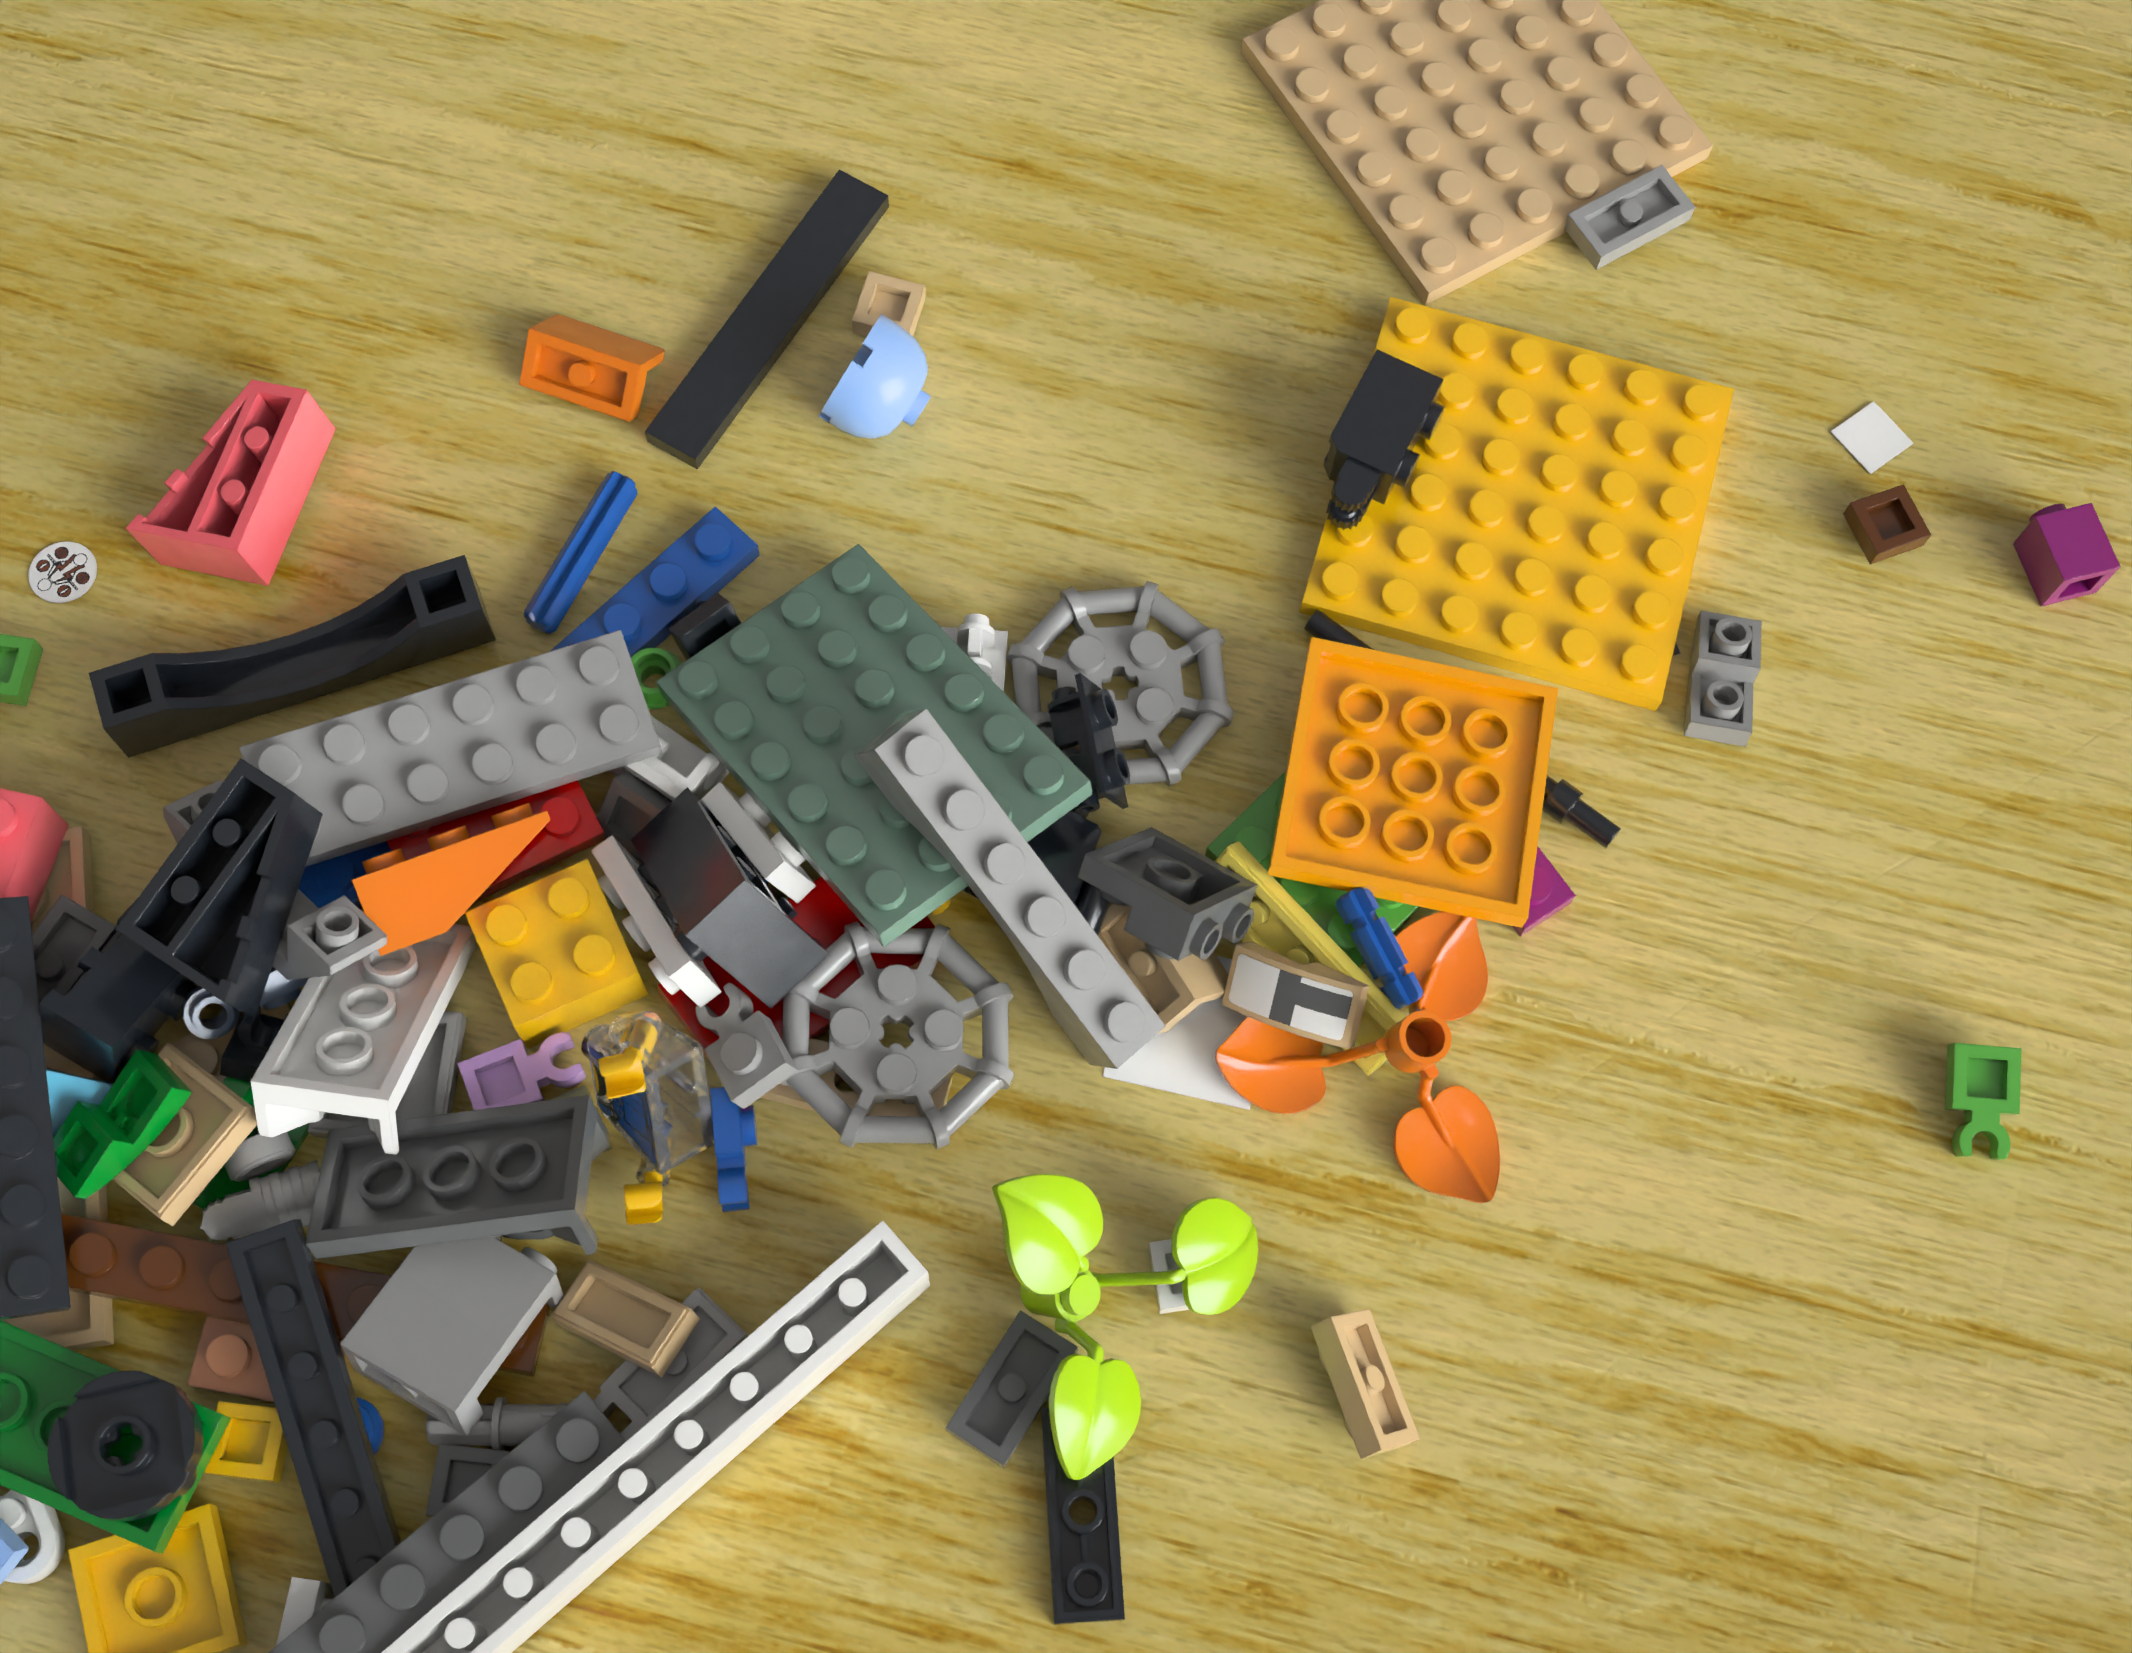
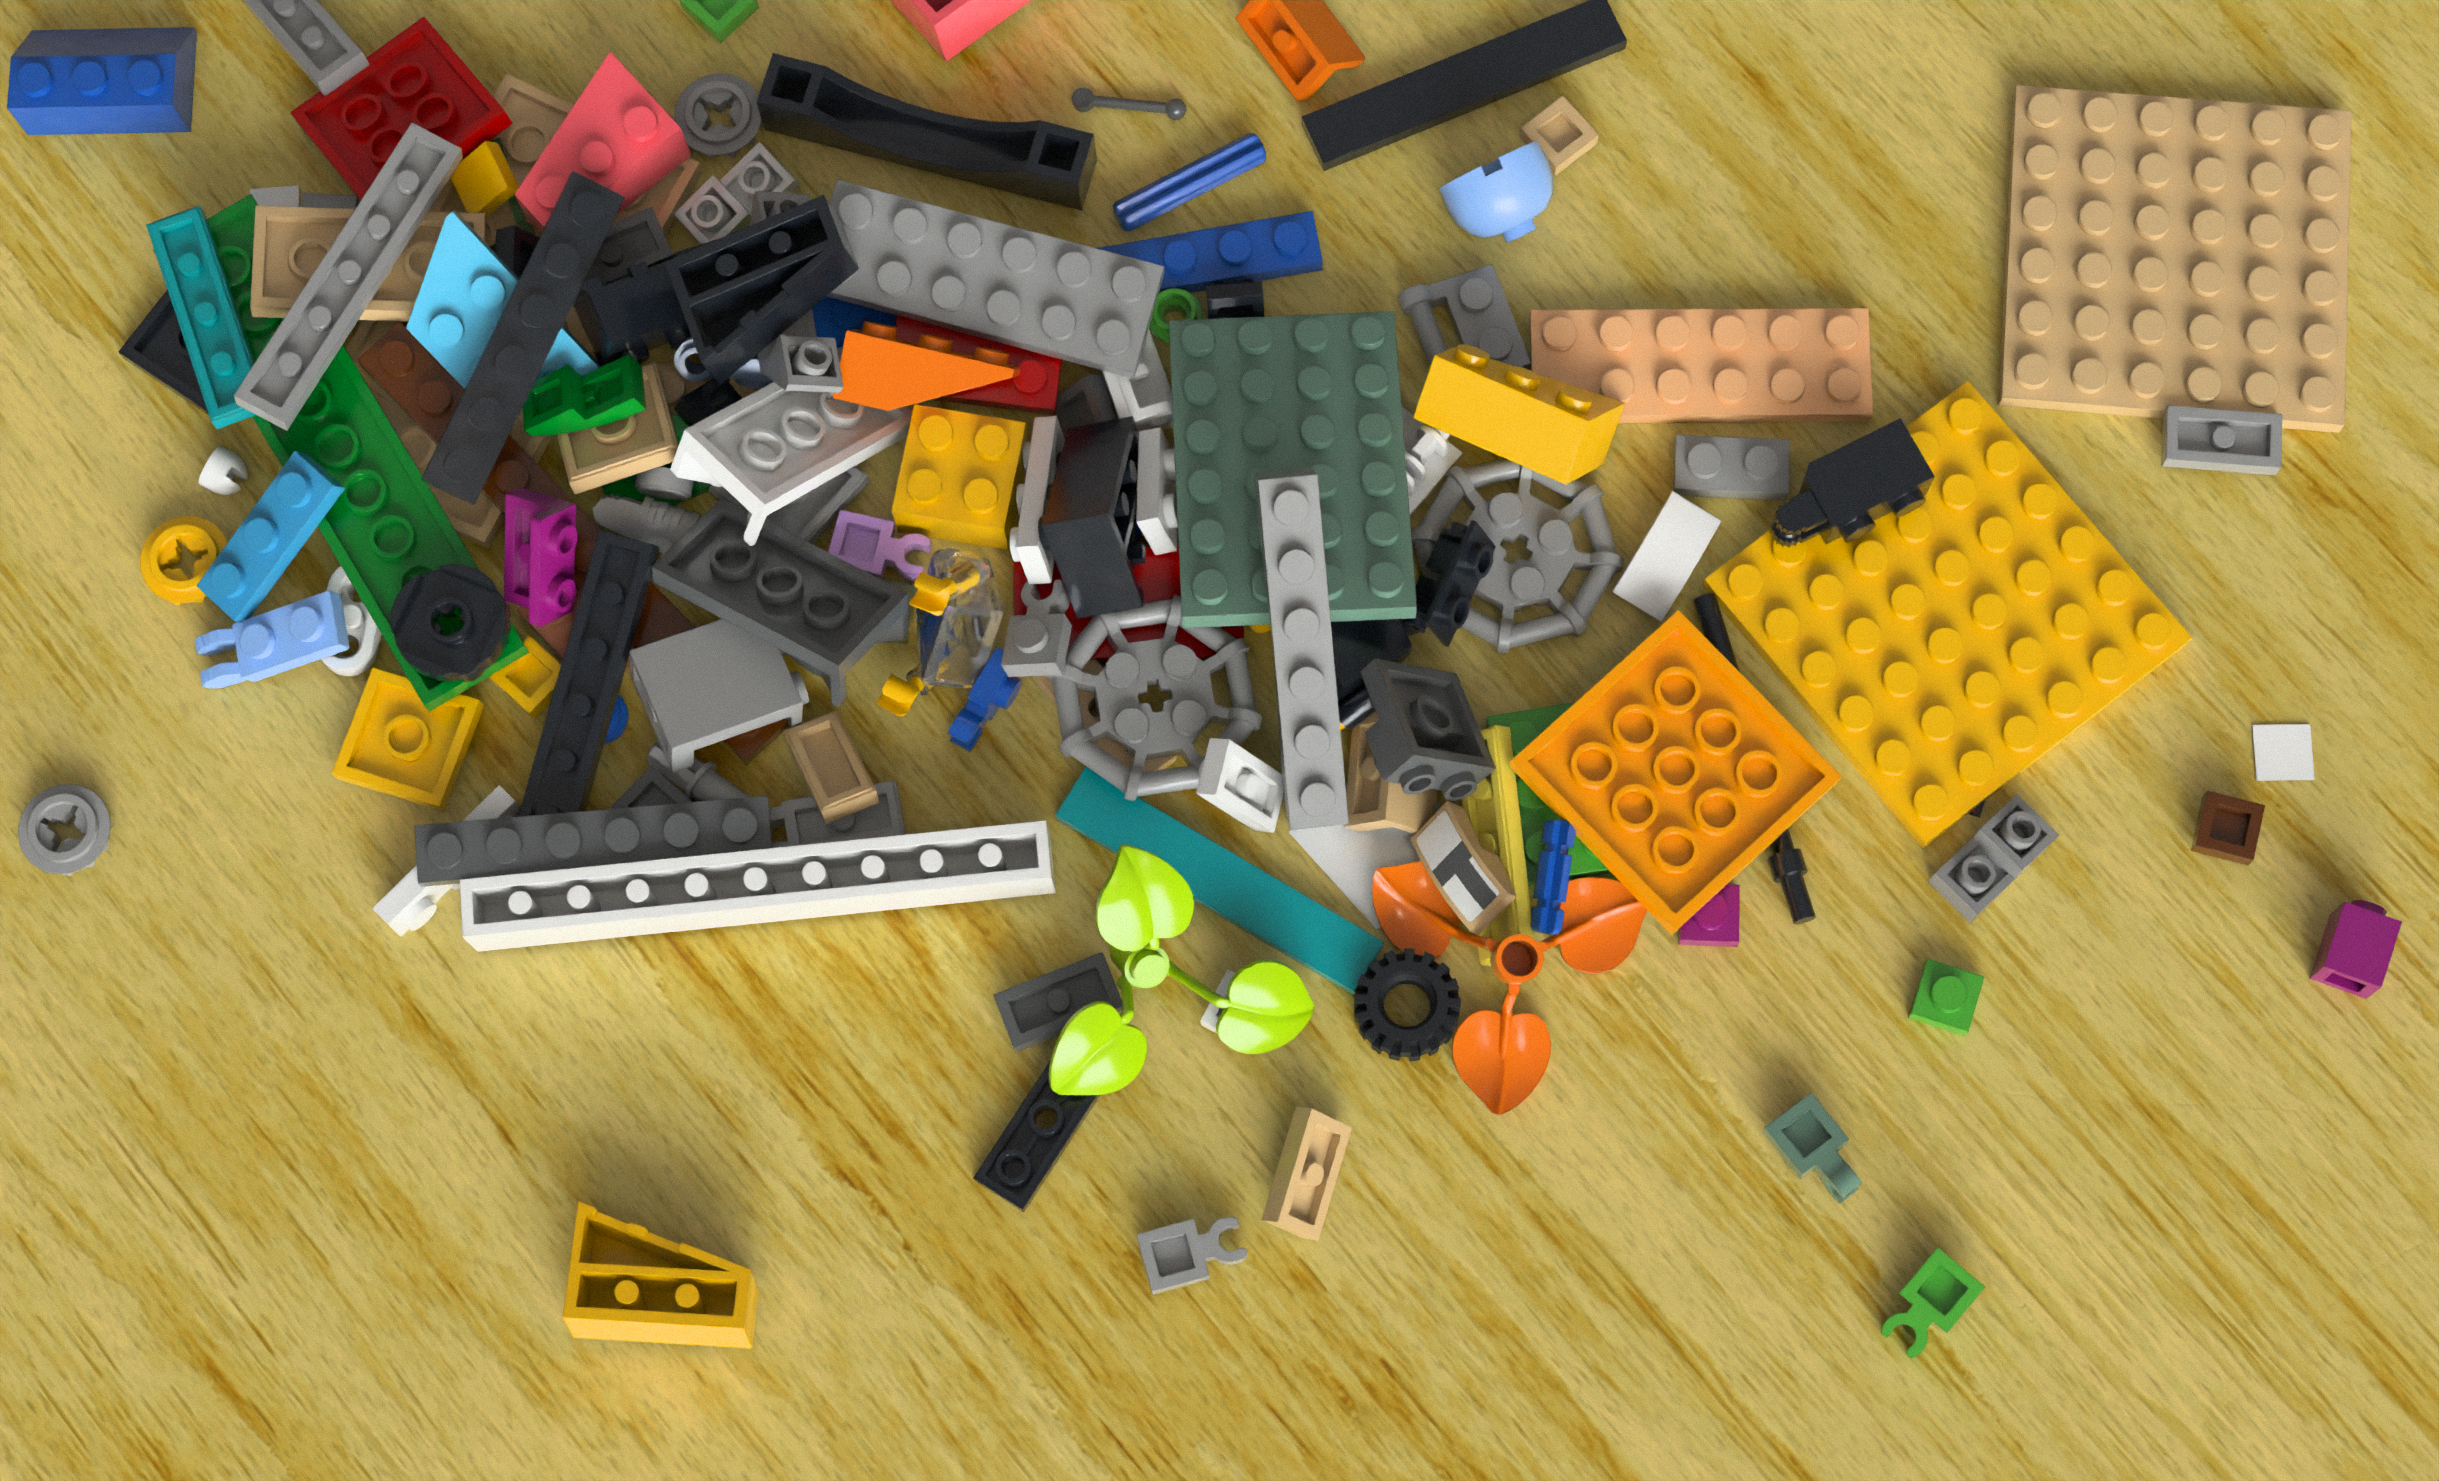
camera: 45 degrees right, 5 degrees up
(56, 753) = (718, 93): none -> light grey gear
(141, 837) = (726, 204): none -> white slope
(176, 1311) = (539, 554): none -> magenta bracket
(427, 542) = (1085, 100): none -> dark grey hinge
(939, 511) = (1476, 311): none -> light grey plate
(1036, 559) = (1518, 413): none -> yellow wedge
(1037, 1059) = (1241, 785): none -> white plate
(1106, 1160) = (1224, 882): none -> teal tile
(1154, 428) = (1712, 362): none -> light nougat plate
(1248, 495) = (1731, 467): none -> light grey plate
(1257, 603) = (1666, 556): none -> white slope
(1305, 1548) = (1178, 1255): none -> light grey plate
(1358, 1127) = (1414, 970): none -> black tyre
(1773, 1028) = (1810, 1141): none -> sand green plate
(1778, 823) = (1946, 997): none -> bright green plate

